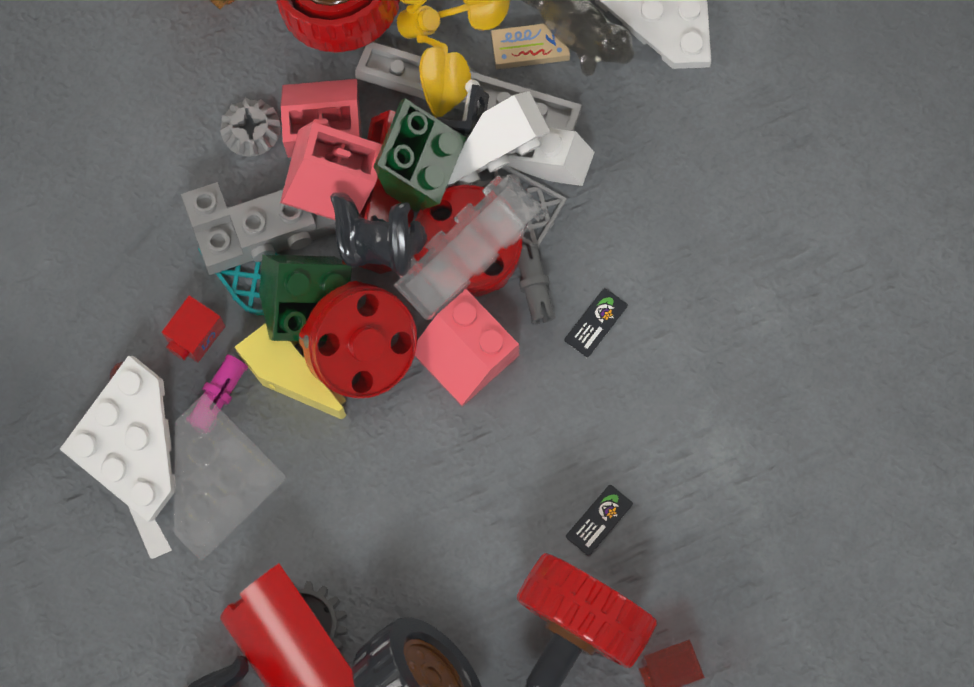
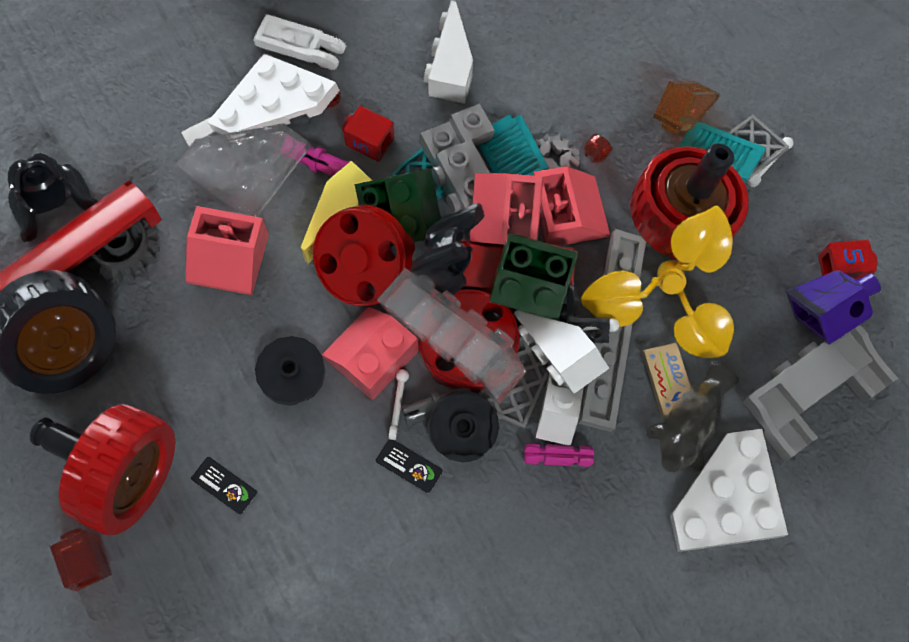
camera: 80 degrees right, 5 degrees down
(48, 408) = (298, 41): none -> white hinge
(107, 222) = (453, 64): none -> white slope
(244, 168) = (513, 148): none -> teal window
(248, 77) = (597, 148): none -> clear red hinge
(328, 500) = (225, 250): none -> coral slope
(482, 459) = (298, 385): none -> black plate
(555, 333) = (402, 376): none -> white hinge
(572, 245) = (480, 431): none -> black plate
(601, 166) = (558, 455): none -> dark pink axle

